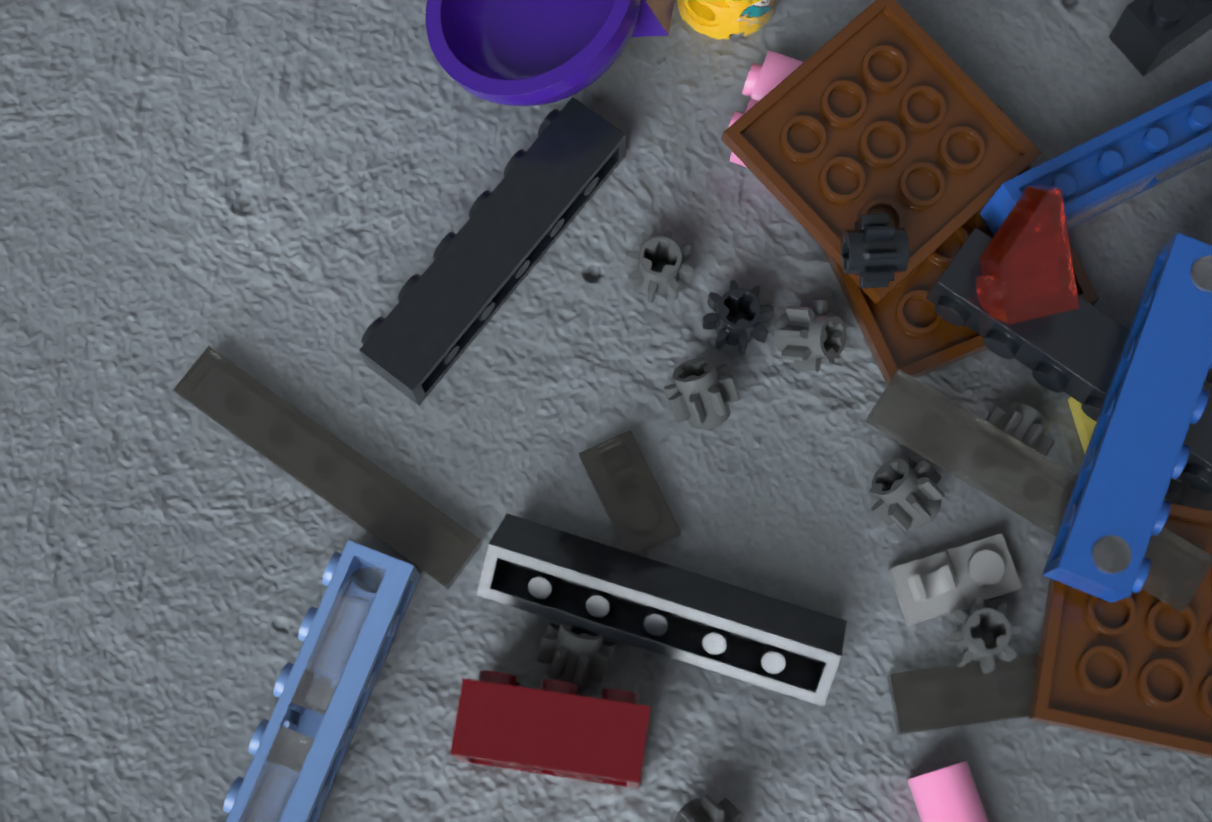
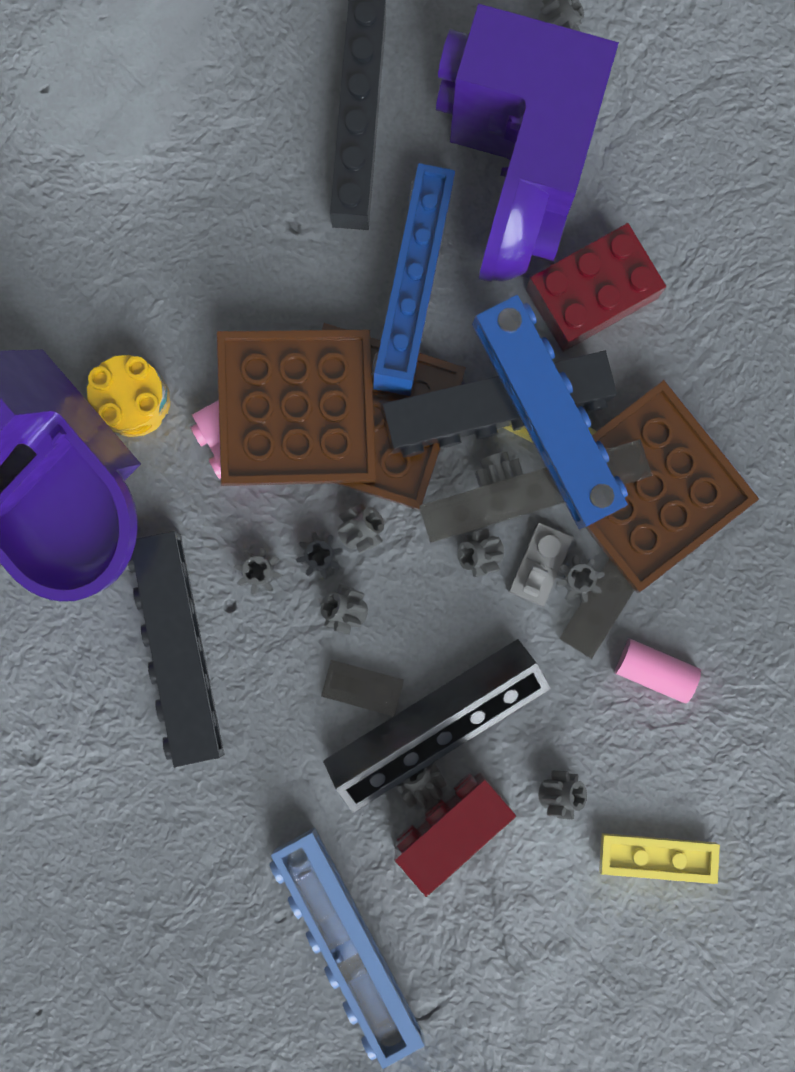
camera: 50 degrees left, 10 degrees up
(328, 467) = (216, 830): clear smoke tile -> none
(874, 250) = (351, 466): black gear -> none
(1029, 261) = (427, 401): clear red slope -> none

